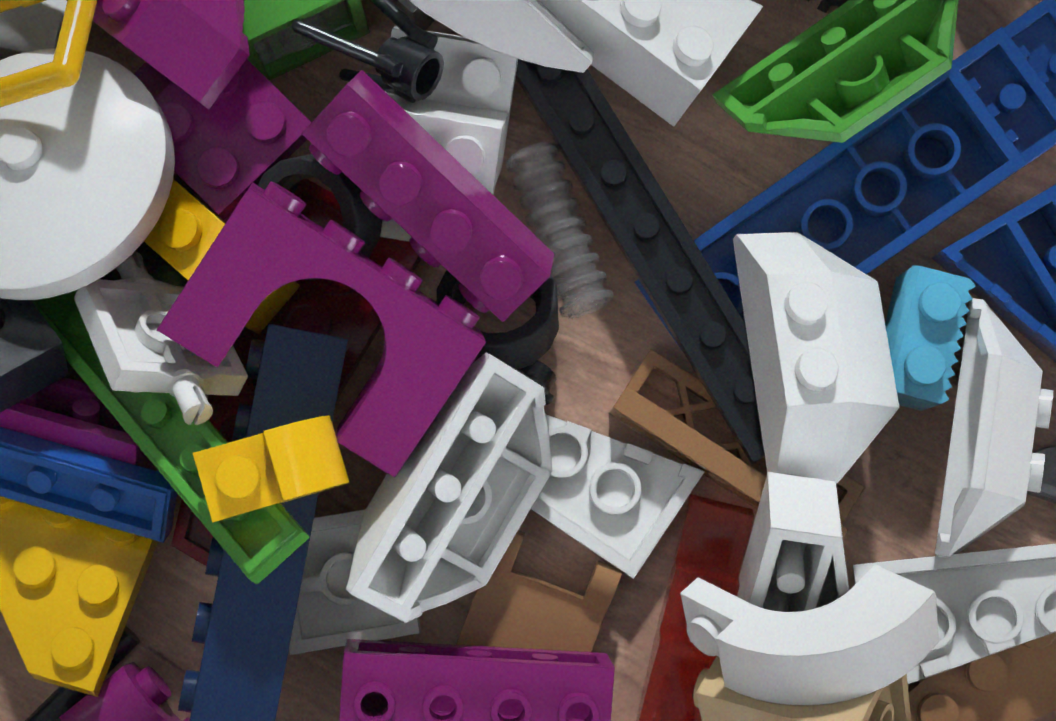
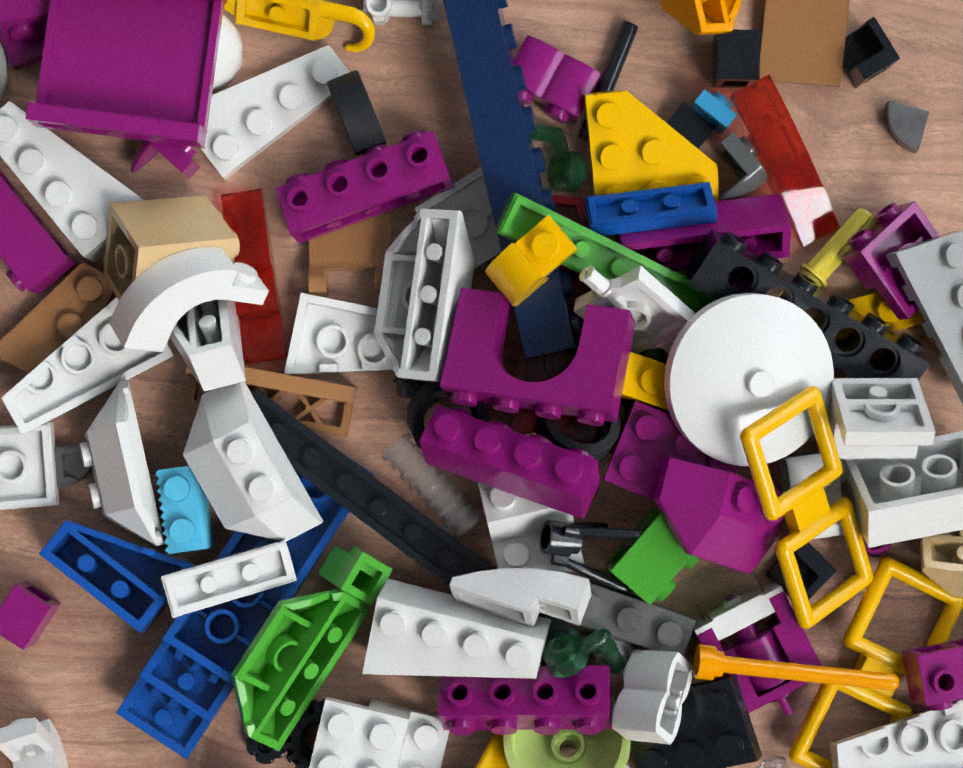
camera: 160 degrees right, 5 degrees up
(173, 602) = (566, 167): none -> clear green plate
(717, 149) = (355, 573): none -> bright green brick
(900, 209) = (228, 578): none -> white tile

